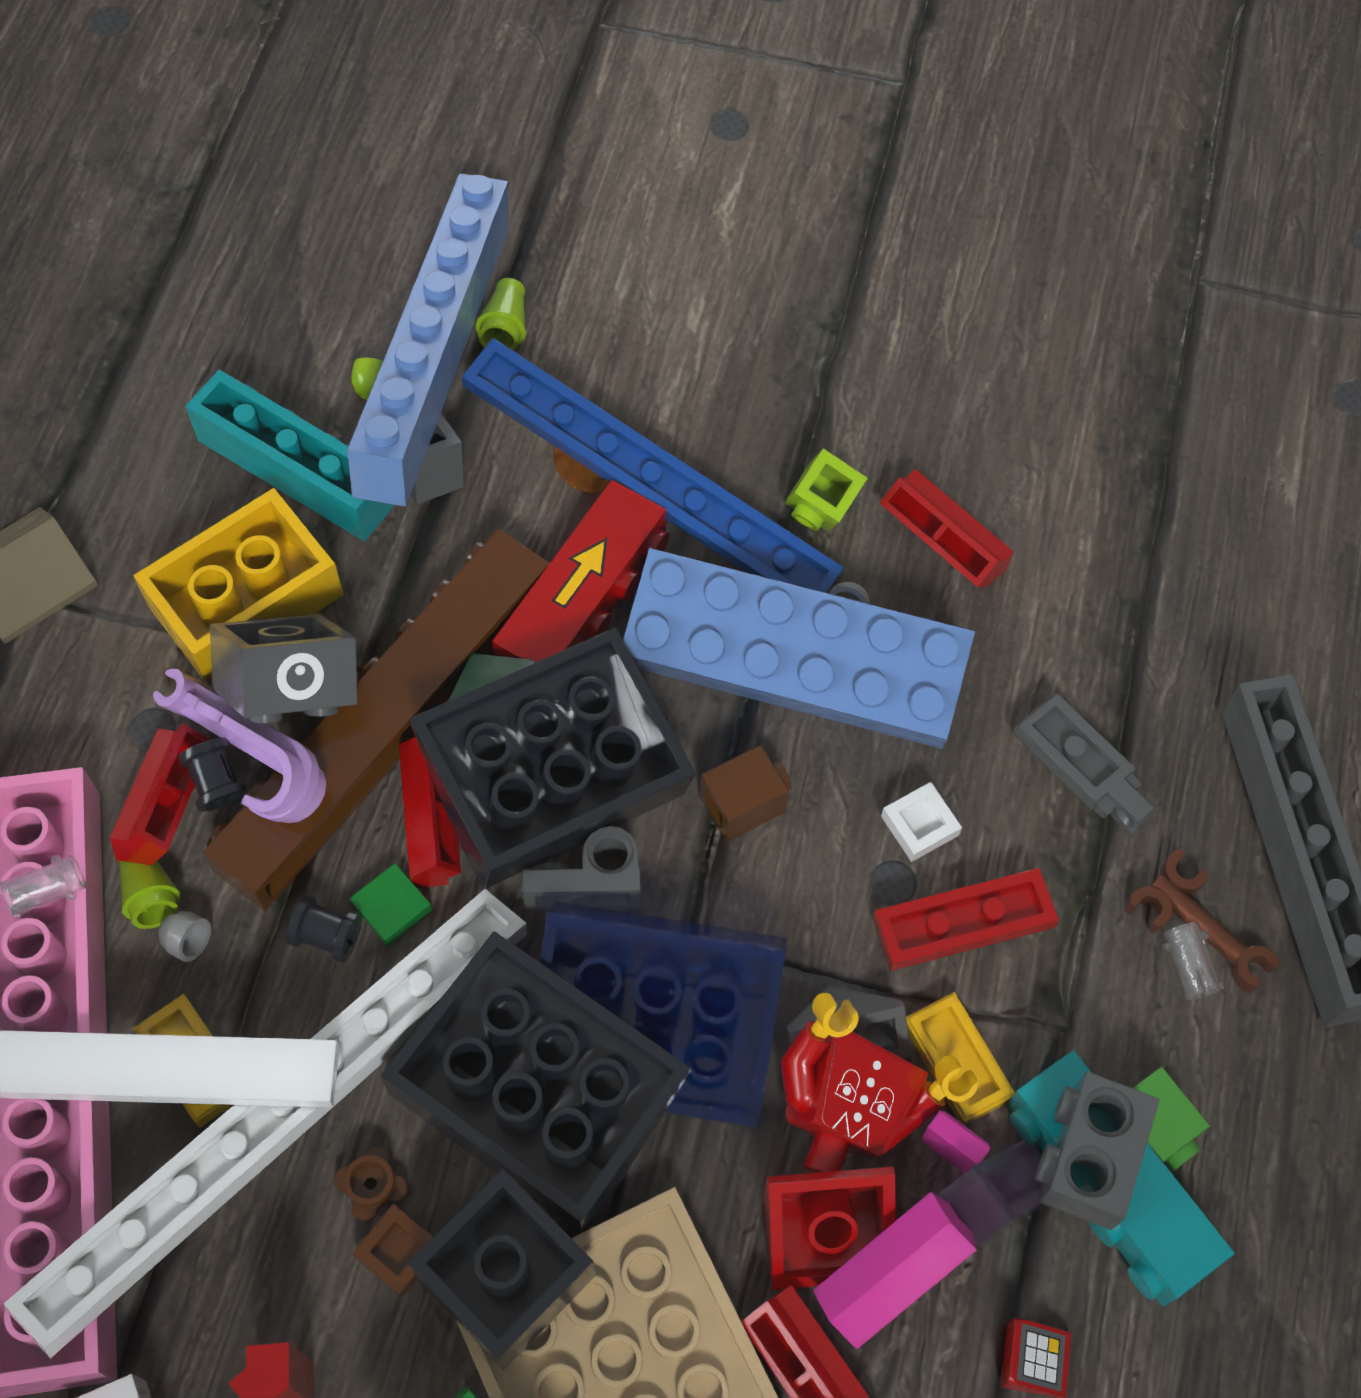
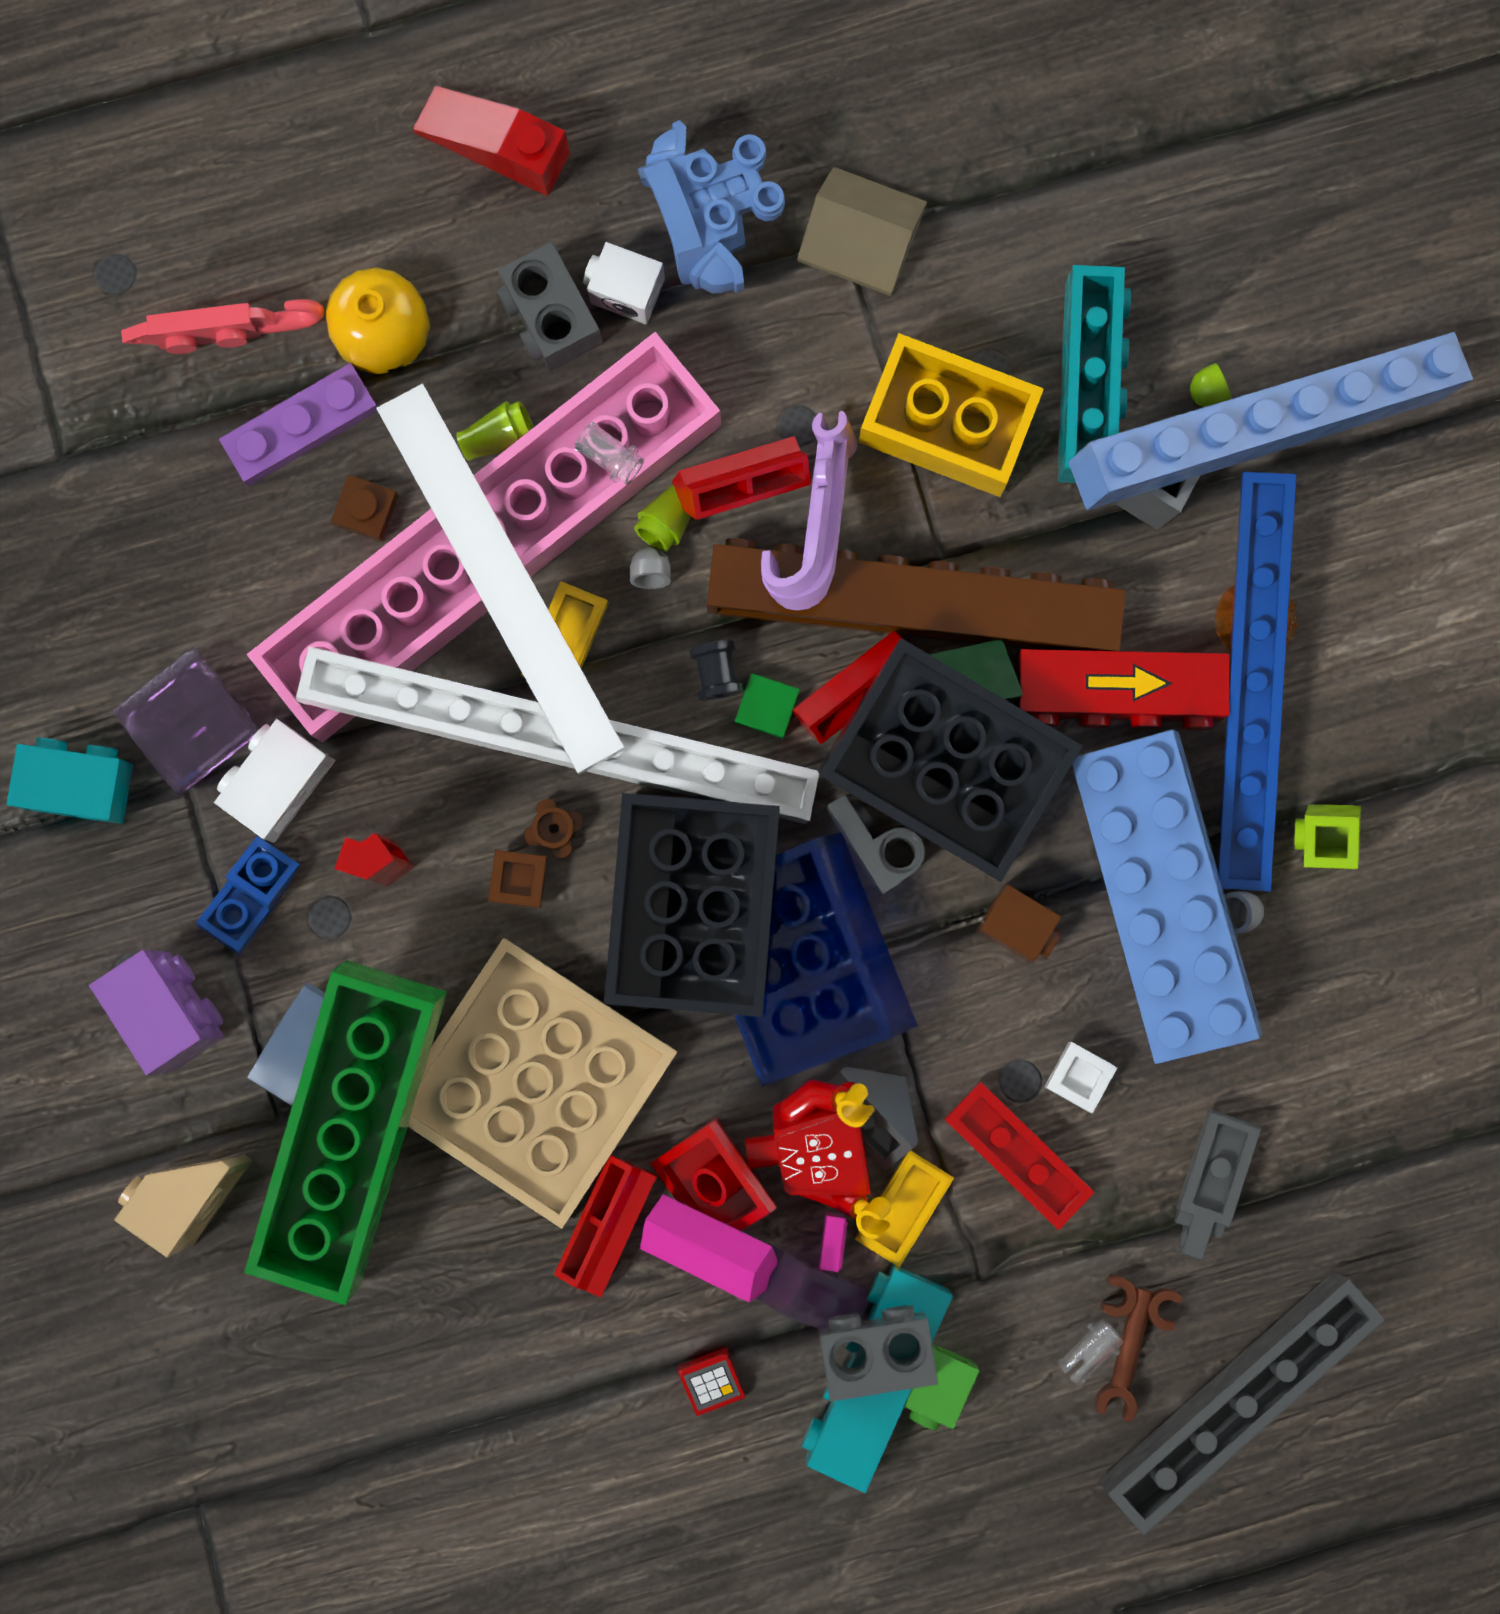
camera: 65 degrees right, 20 degrees up
(212, 774) = (777, 509): black bush -> none
(284, 666) = (893, 505): dark grey brick -> none
(503, 1268) = (538, 968): black brick -> none
(504, 315) = (1340, 458): lime cone -> none
(947, 529) = (1363, 955): red piece -> none

